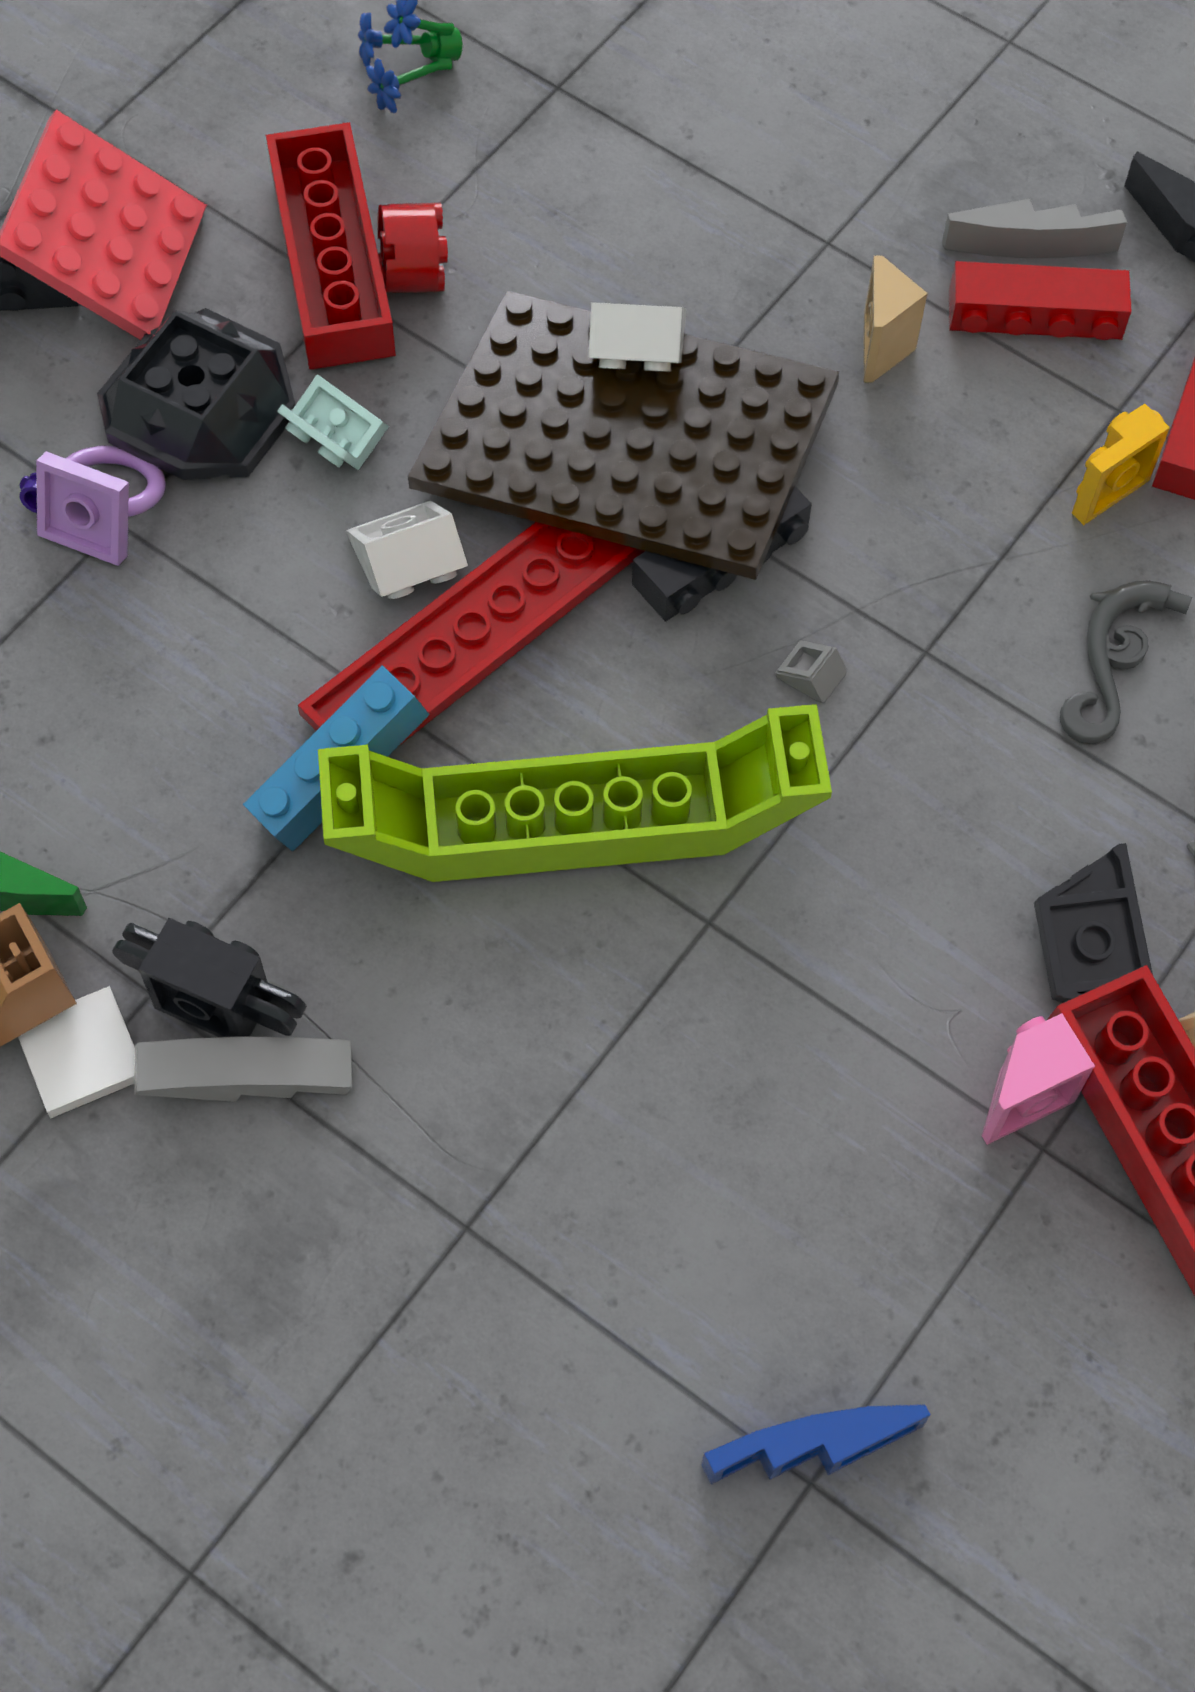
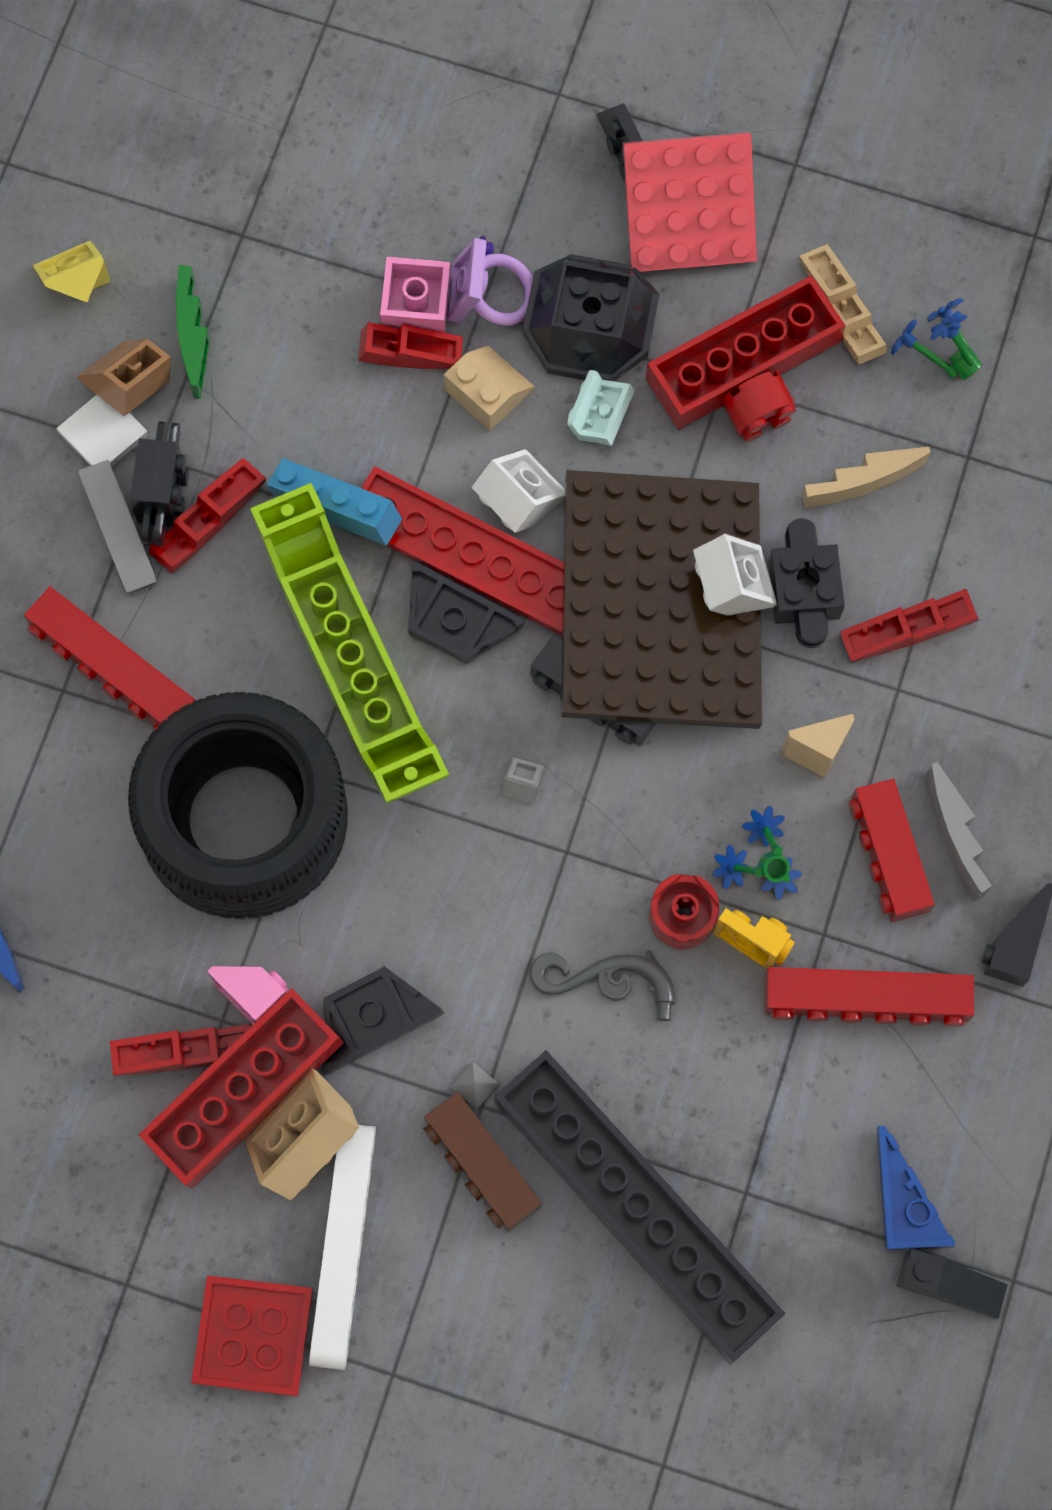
camera: 70 degrees right, 10 degrees up
(73, 578) = (415, 293): none -> bright pink brick
(138, 617) = (409, 347): none -> red slope
(242, 545) = (486, 385): none -> tan slope
(247, 145) = (840, 289): none -> tan slope
(273, 933) = (210, 513): none -> red slope
(458, 1135) = (104, 658): none -> red brick
(545, 182) = (875, 473): none -> tan slope
(553, 677) = (456, 617): none -> black wing
(694, 280) = (806, 583): none -> black brick
(755, 200) = (909, 626): none -> red slope
(780, 898) = (219, 736): none -> black tyre
(1034, 422) = (771, 865): none -> blue plant
(1058, 532) = (683, 892): none -> red brick
(1082, 1212) = (172, 1050): none -> red slope

